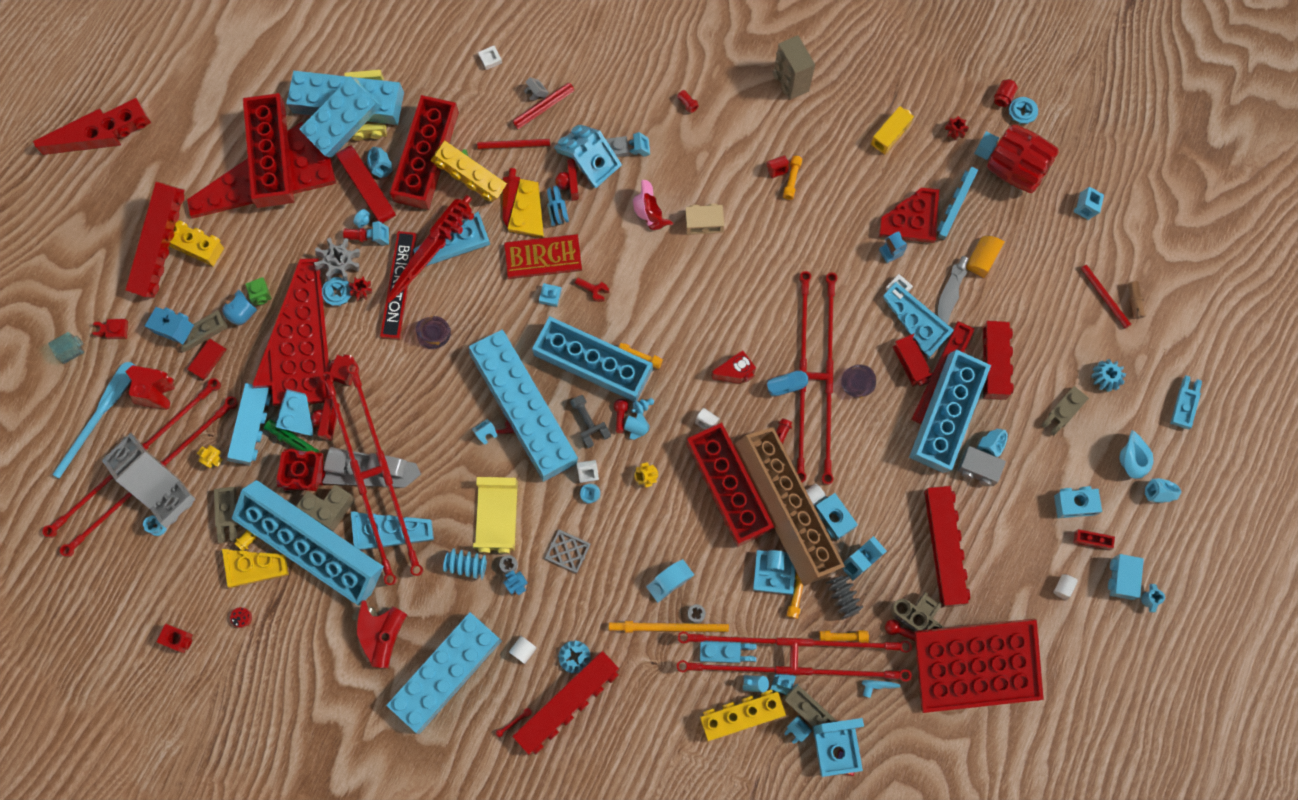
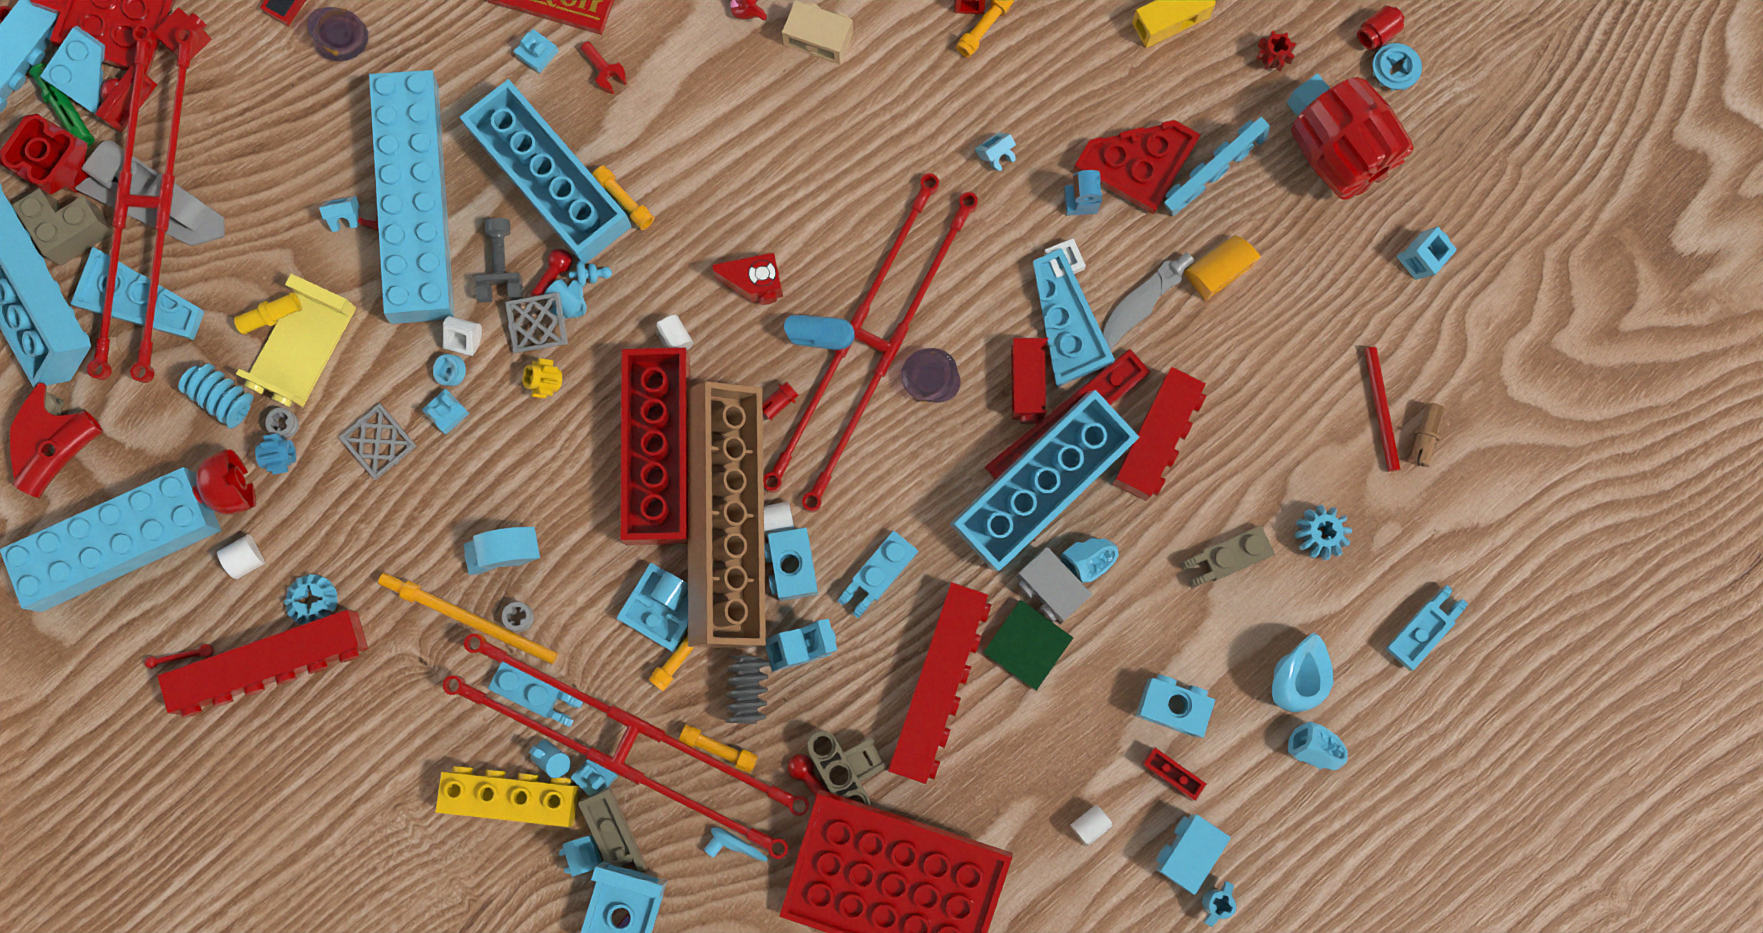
camera: 25 degrees right, 5 degrees up
(471, 506) = (267, 313): none -> yellow pin
(495, 612) = (223, 484): none -> red cylinder
(598, 517) = (445, 411): none -> medium azure tile
(615, 453) = (559, 318): none -> light grey window
(832, 243) = (996, 147): none -> medium azure tile
(883, 500) = (880, 571): none -> medium azure hinge
(982, 505) = (1028, 645): none -> dark green tile

